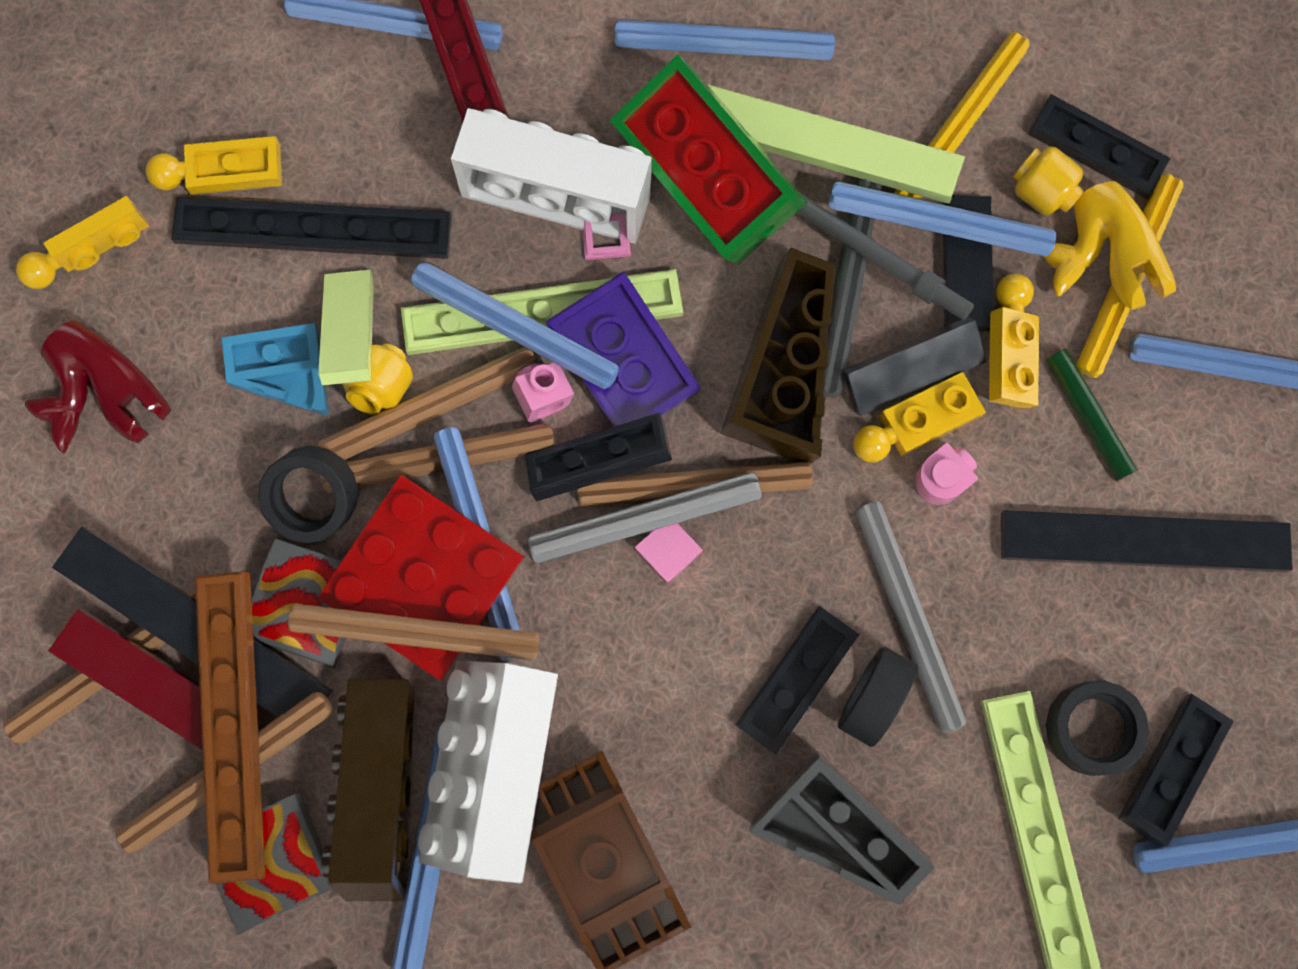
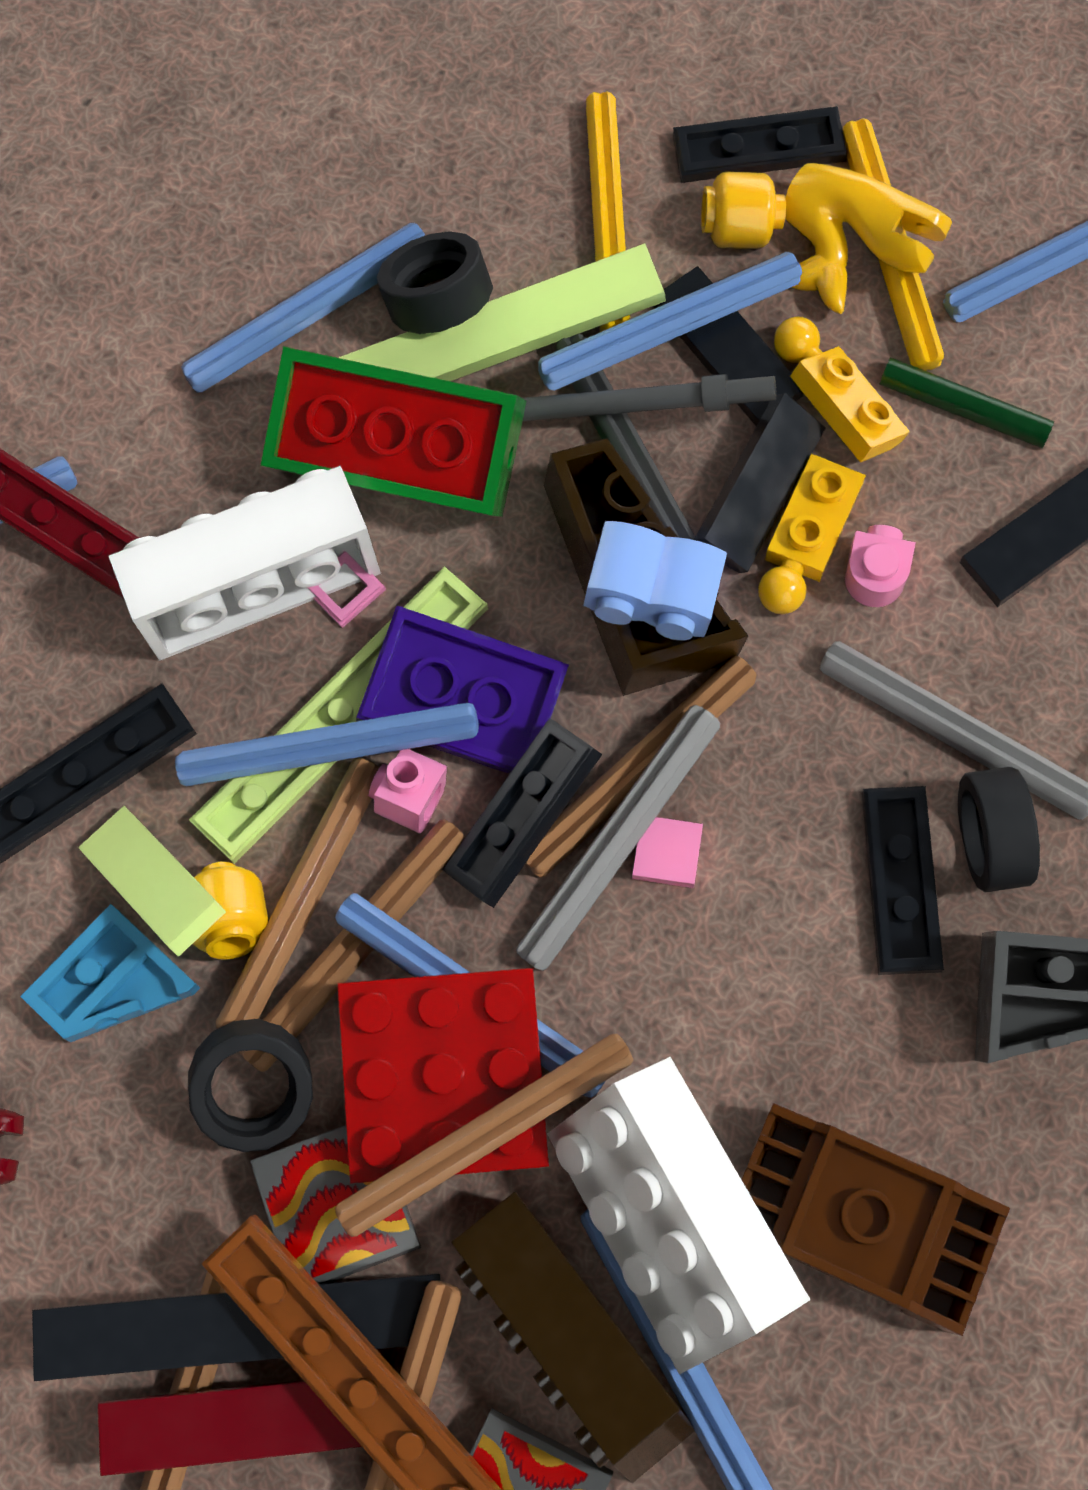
camera: 30 degrees left, 5 degrees down
(786, 376) = (654, 580): none -> light blue brick
(809, 101) = (443, 303): none -> black tyre

